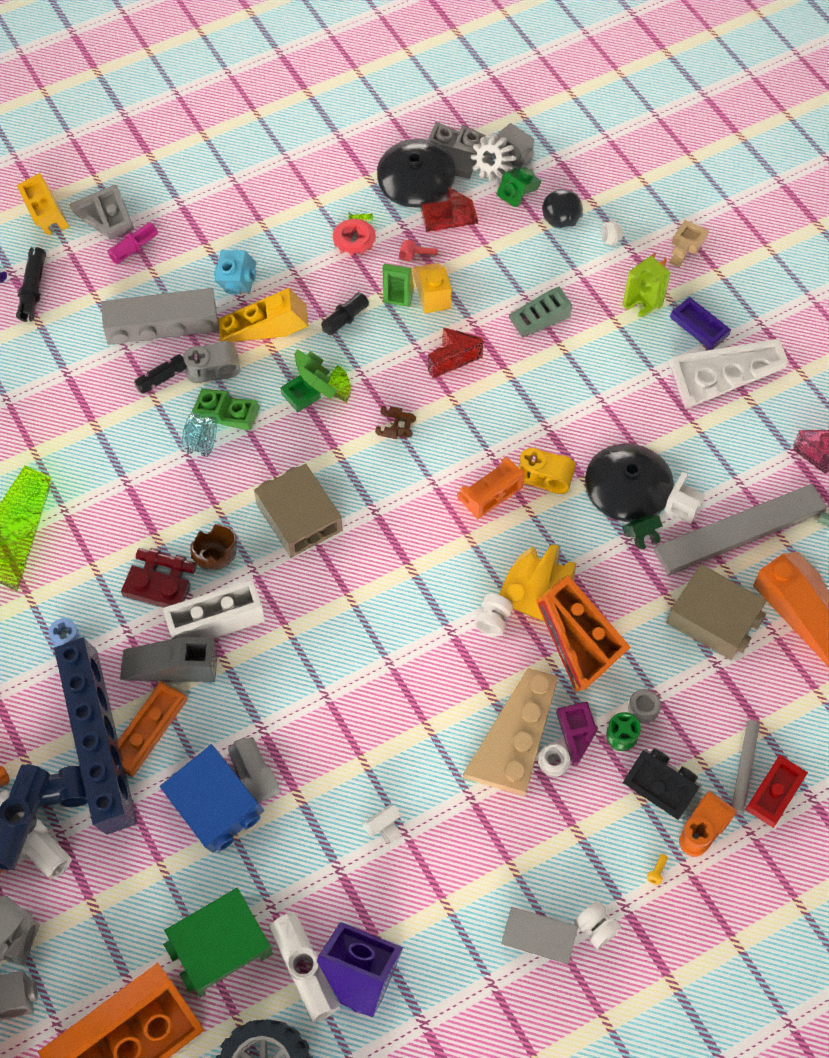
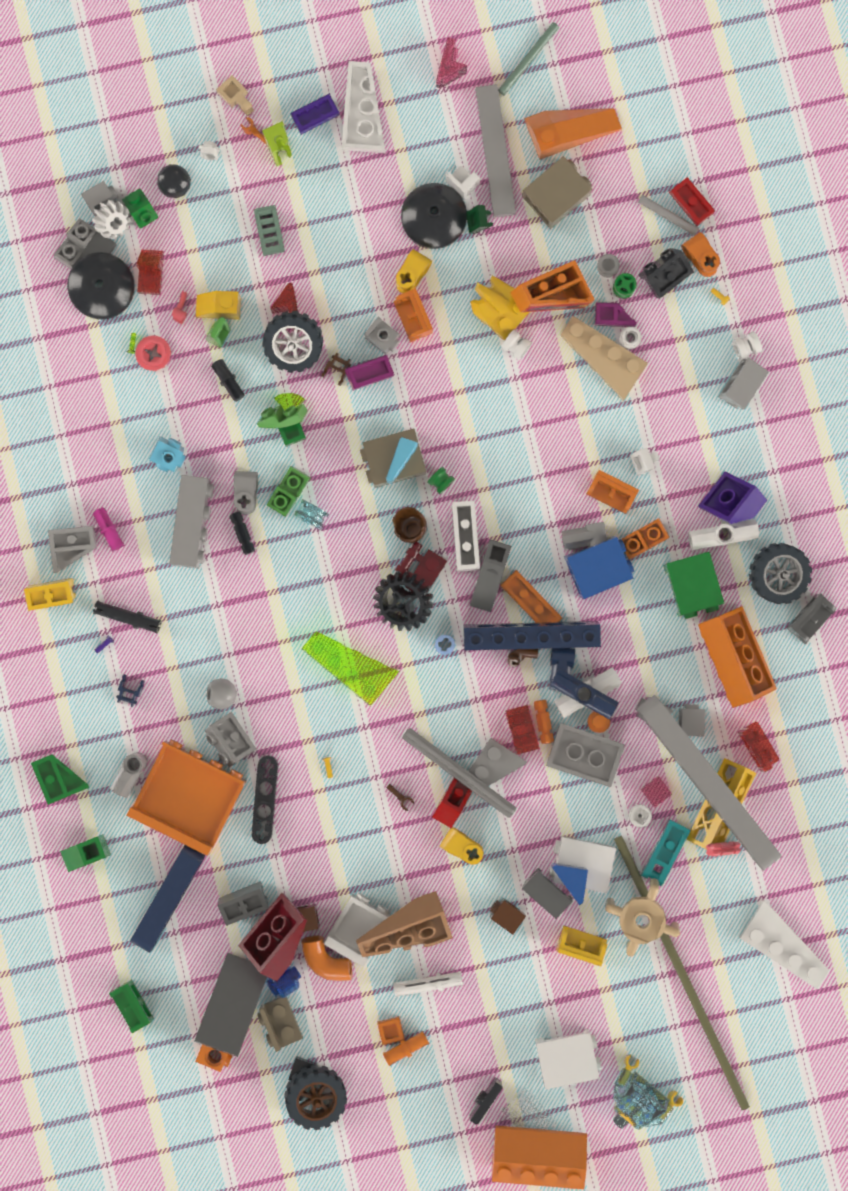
camera: 70 degrees left, 25 degrees up
(61, 727) = (519, 655): none -> reddish brown arm
(105, 580) = (407, 609): none -> black gear
(267, 318) = (216, 443): yellow slope -> none
(271, 856) = (645, 538): none -> orange slope
(284, 571) = (441, 480): none -> green wheel
(294, 503) = (402, 455): none -> medium azure slope
(327, 792) = (612, 491): none -> orange hinge
(401, 456) = (369, 372): none -> magenta tile
(426, 364) = (280, 357): none -> black wheel
(452, 458) = (383, 345): none -> light grey brick

